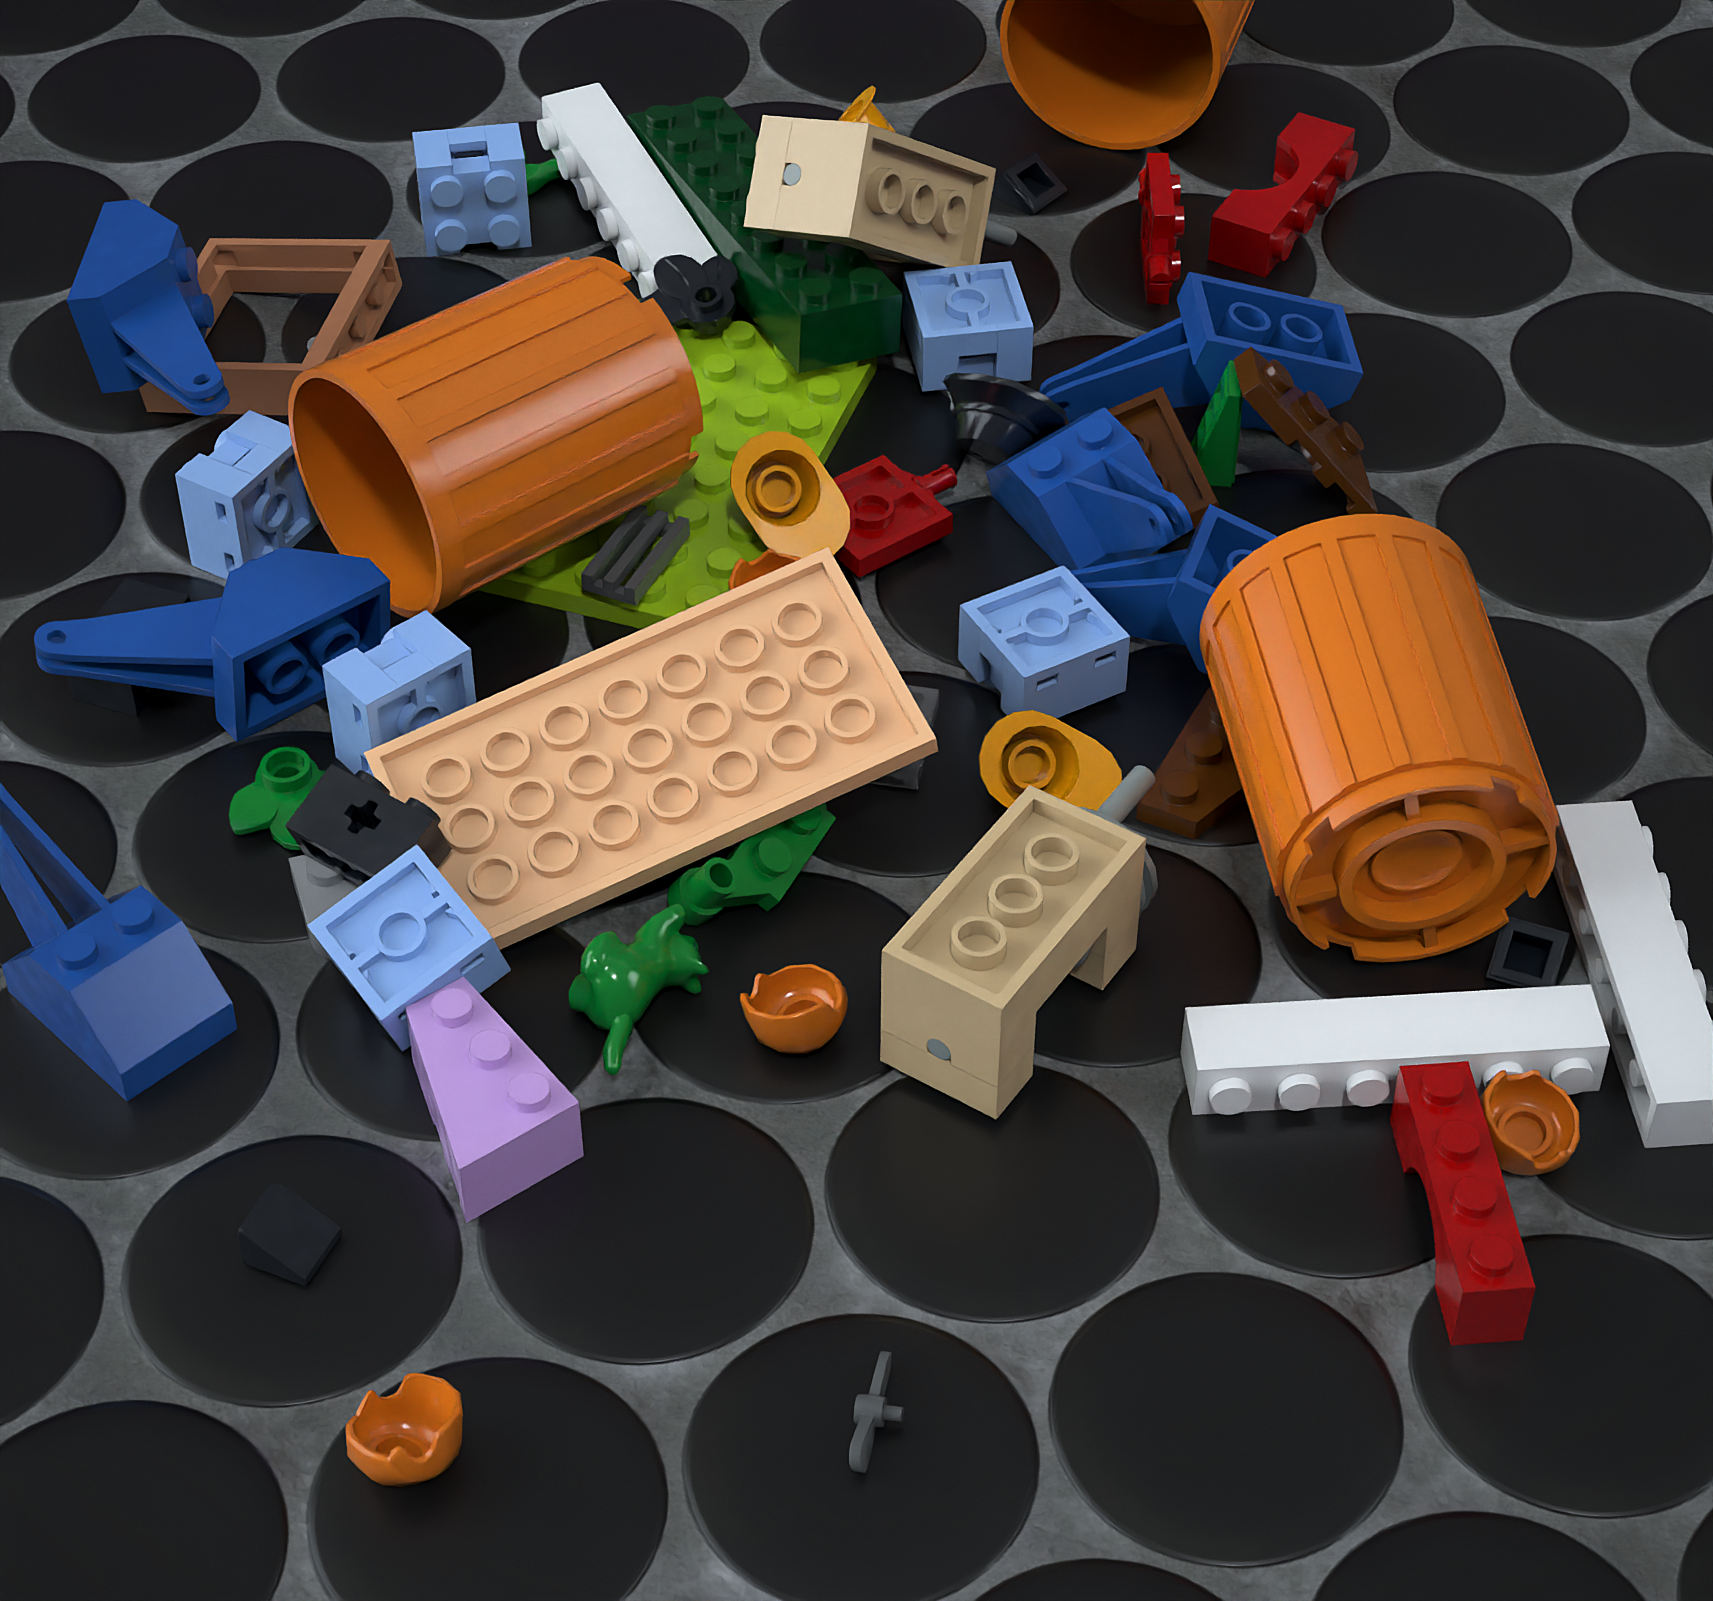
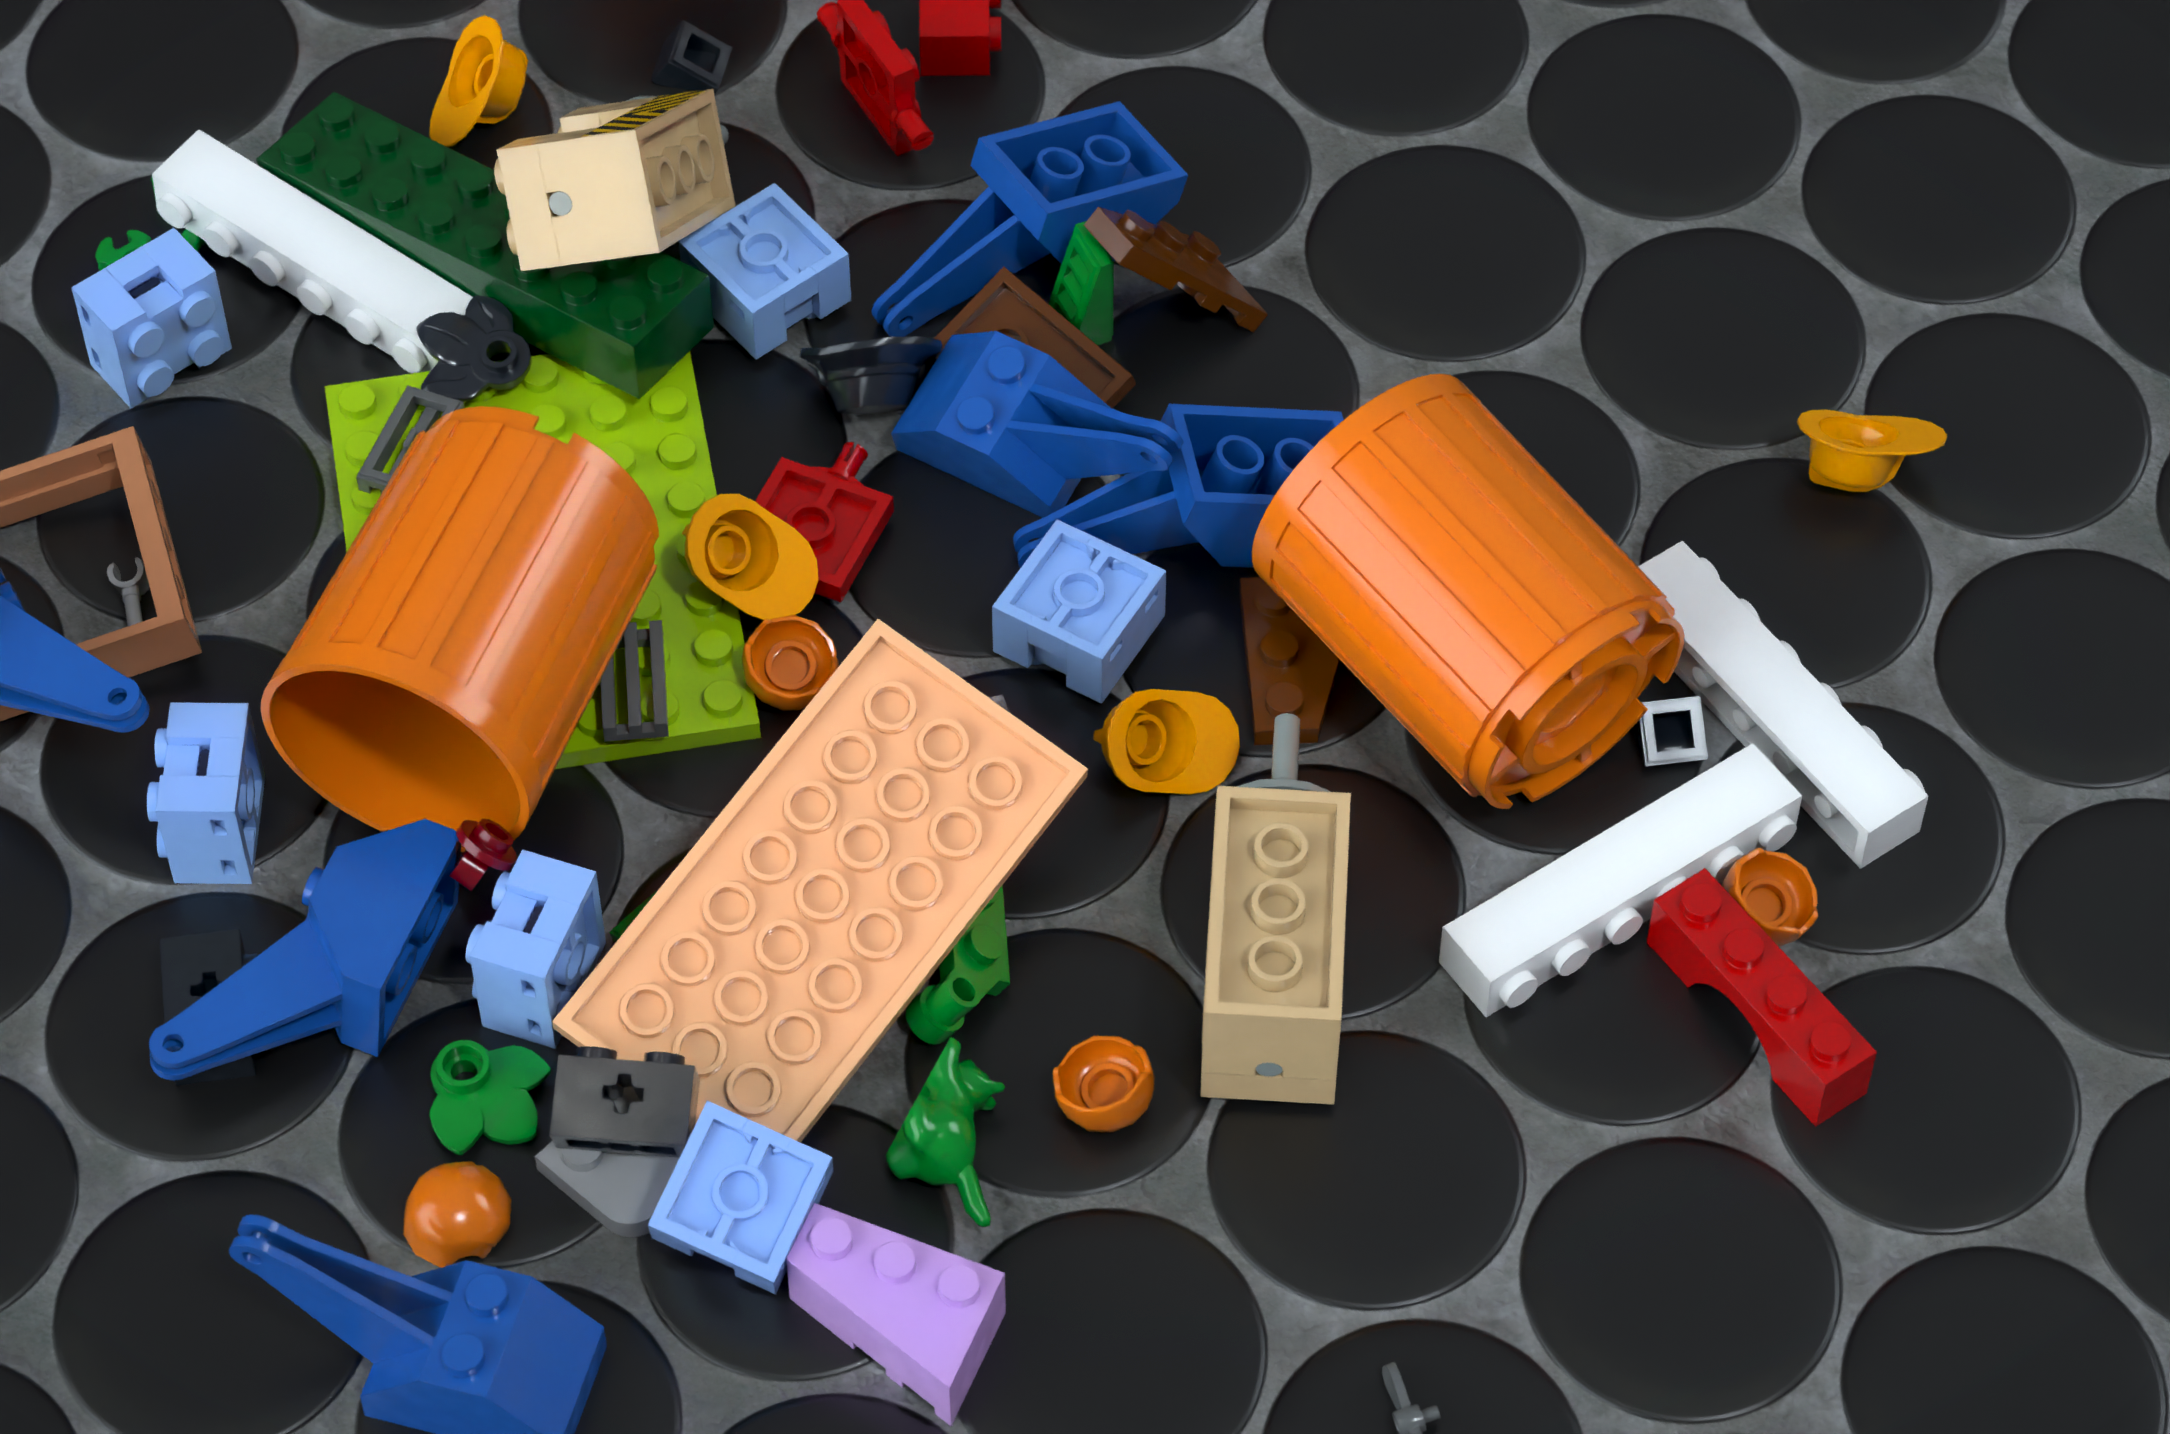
camera: 30 degrees left, 10 degrees up
(197, 870) = (456, 1213): none -> orange hair
(399, 600) = (485, 846): none -> dark red plate

